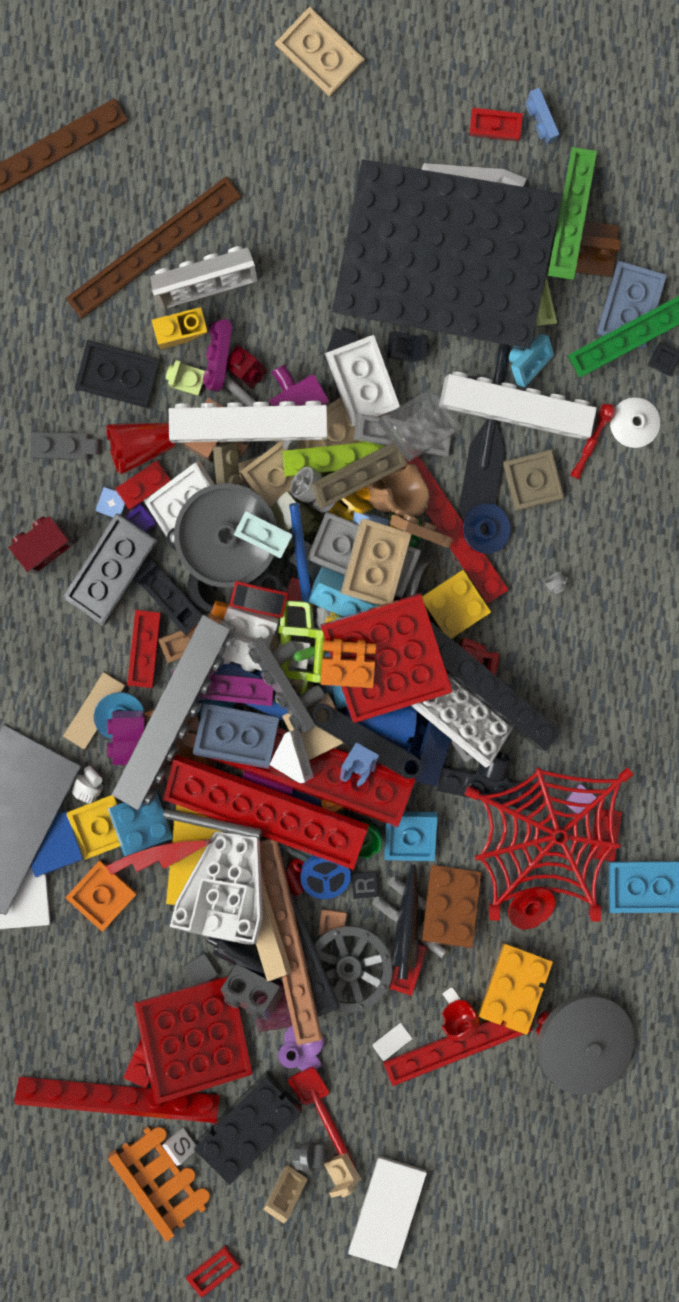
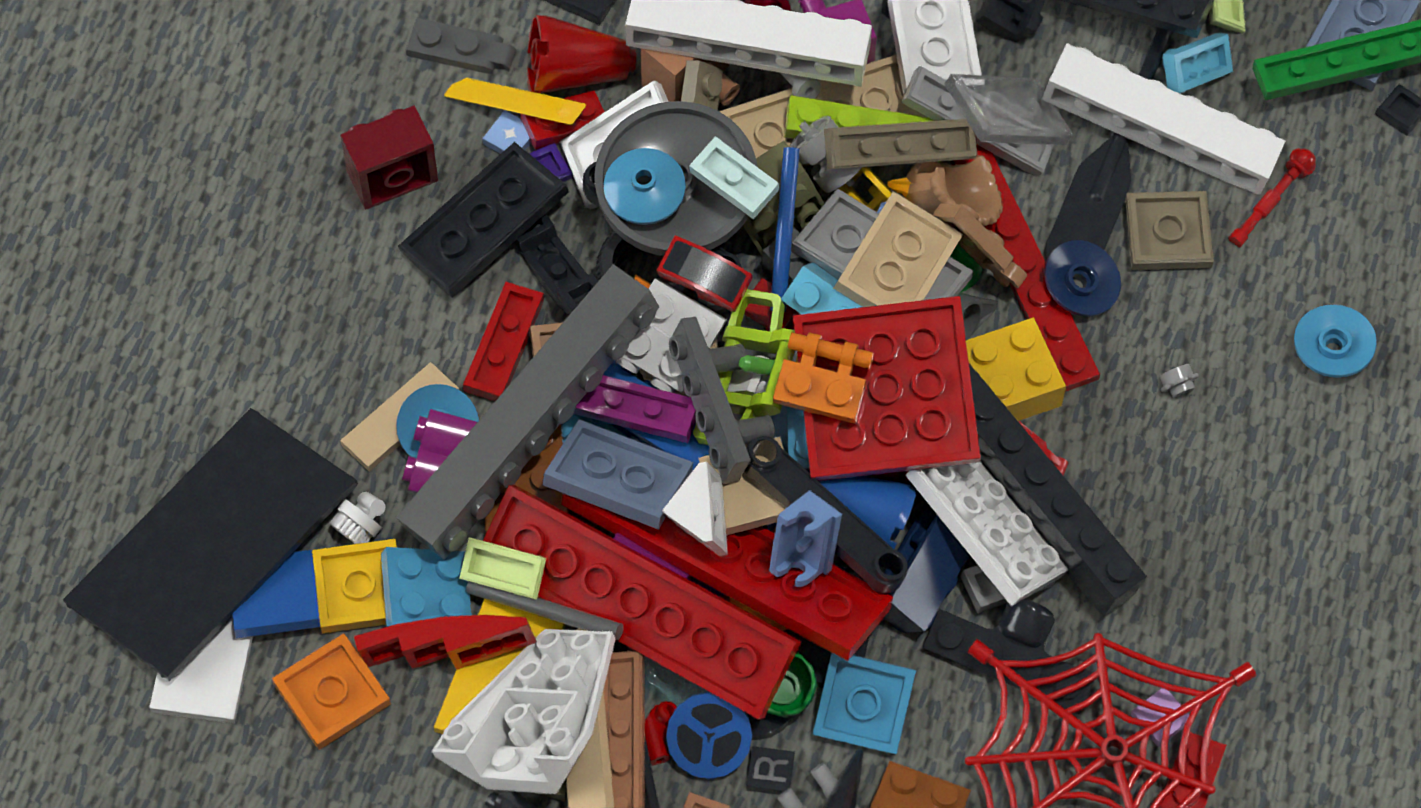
camera: 10 degrees right, 25 degrees down
(109, 482) = (516, 100): none -> yellow sticker
(182, 806) = (502, 568): none -> yellowish green tile
(221, 544) = (646, 202): none -> dark azure dish
(626, 431) = (1339, 200): white dish -> none
(655, 527) = (1339, 326): none -> dark azure dish

